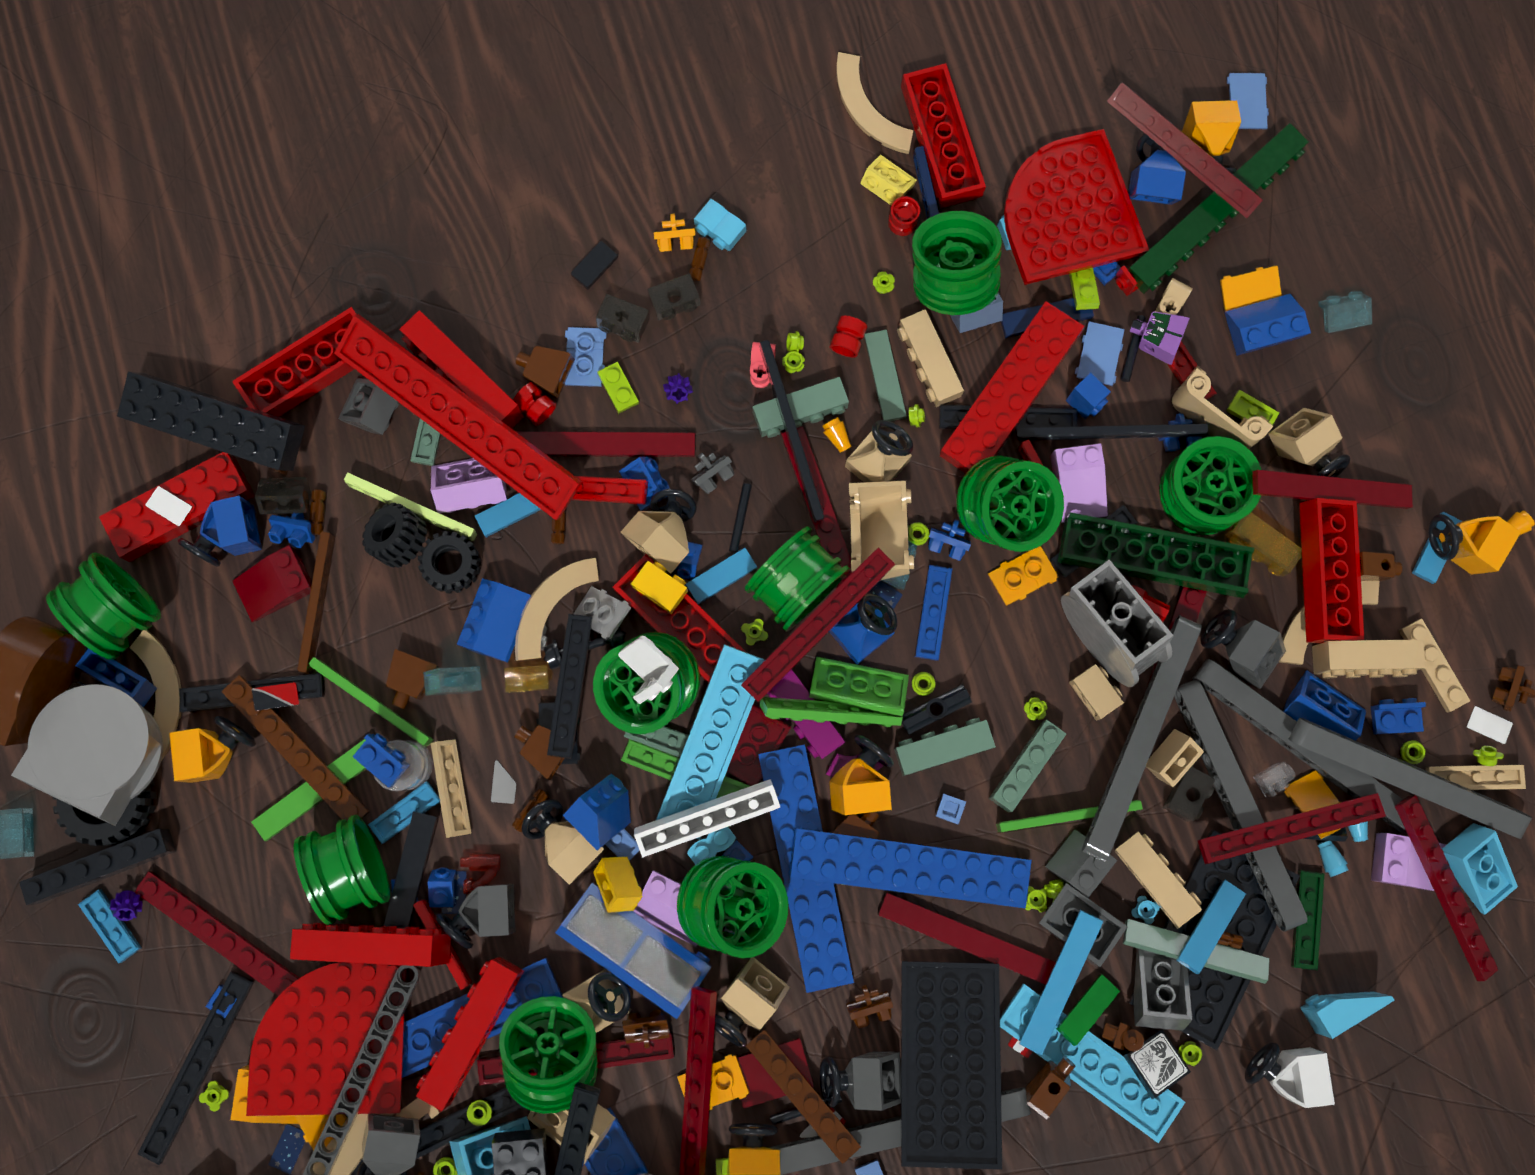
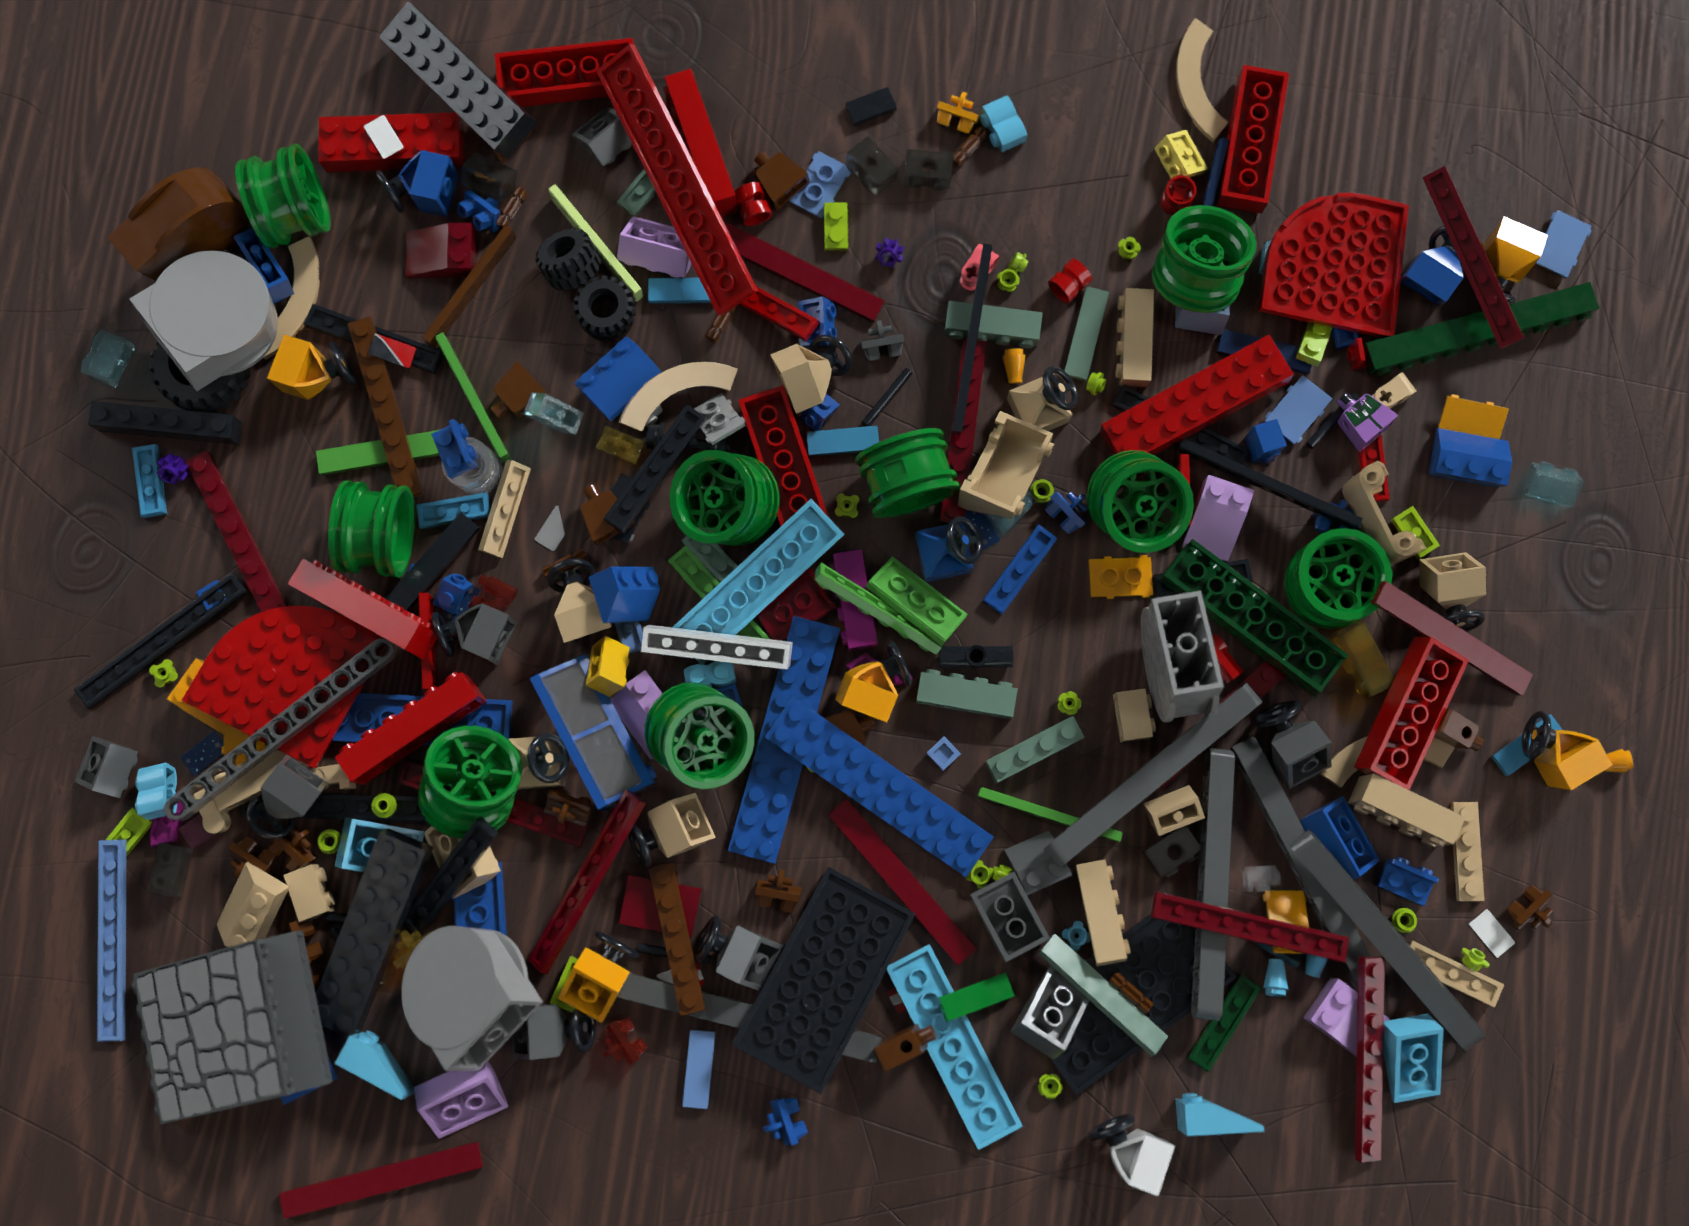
camera: 30 degrees right, 0 degrees up
(651, 666) = (732, 479): white bracket -> none
(659, 586) = (779, 418): yellow brick -> none
(726, 1081) = (614, 891): light orange piece -> none
(817, 625) = (905, 521): dark red plate -> none
(928, 678) = (982, 623): lime plate -> none
(1061, 982) = (962, 957): dark azure tile -> none
(1124, 1037) = (995, 1036): reddish brown hips -> none
(1157, 1064) = (1014, 1078): tile -> none
(1211, 927) = (1127, 979): dark azure tile -> none

